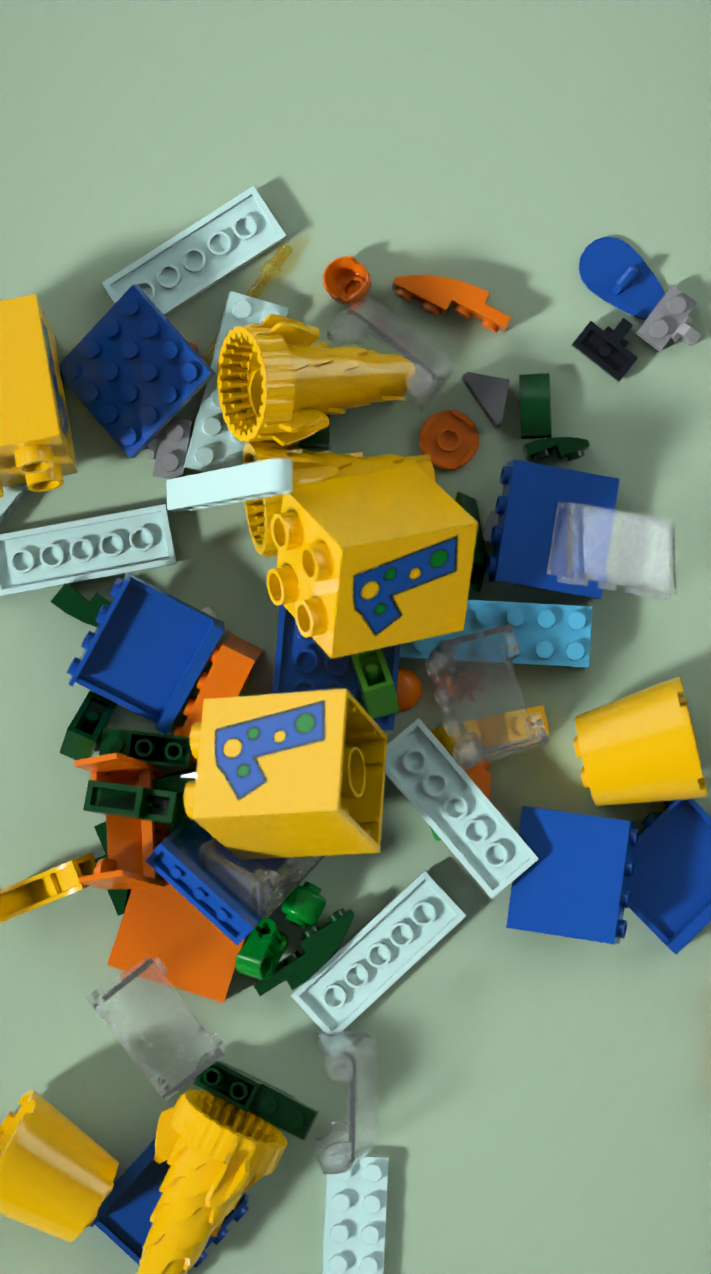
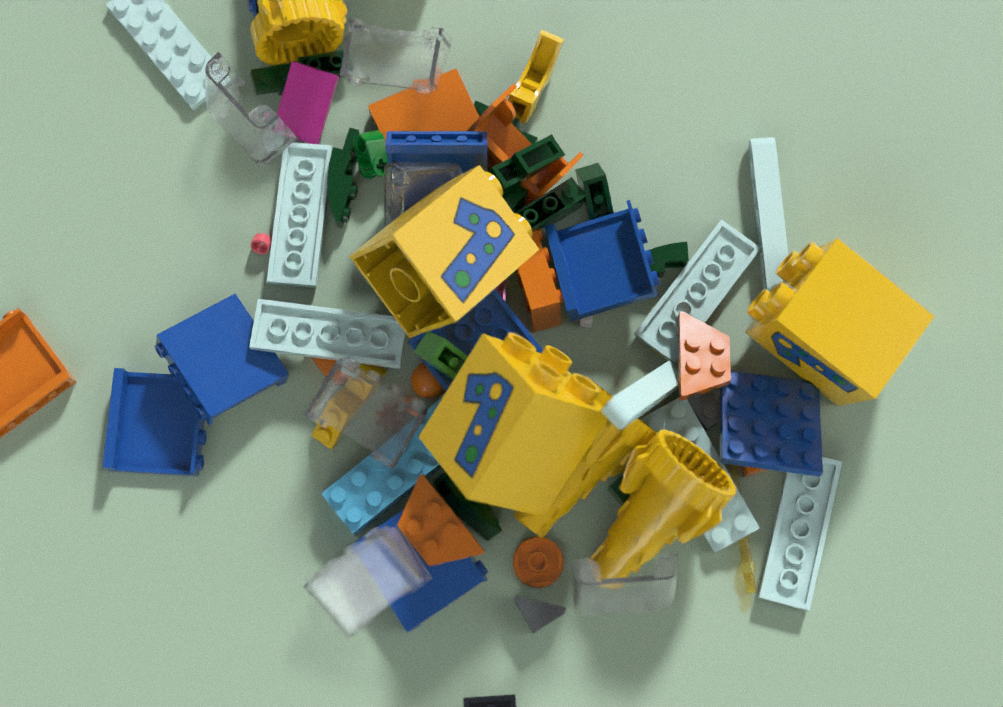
camera: 140 degrees right, 10 degrees down
(139, 482) = (701, 357): none -> wing
(277, 1060) = (307, 101): none -> dark pink tile
(304, 905) = (370, 202): green head -> none
(346, 280) = (695, 603): orange hair -> none
(438, 959) = (256, 243): none -> coral hinge
(440, 293) = (627, 650): orange slope -> none
(516, 542) = (435, 527): none -> orange wing
(535, 406) = (502, 632): dark green slope -> none
(567, 447) = (456, 625): dark green slope -> none
(641, 748) = (242, 470): yellow cone -> none

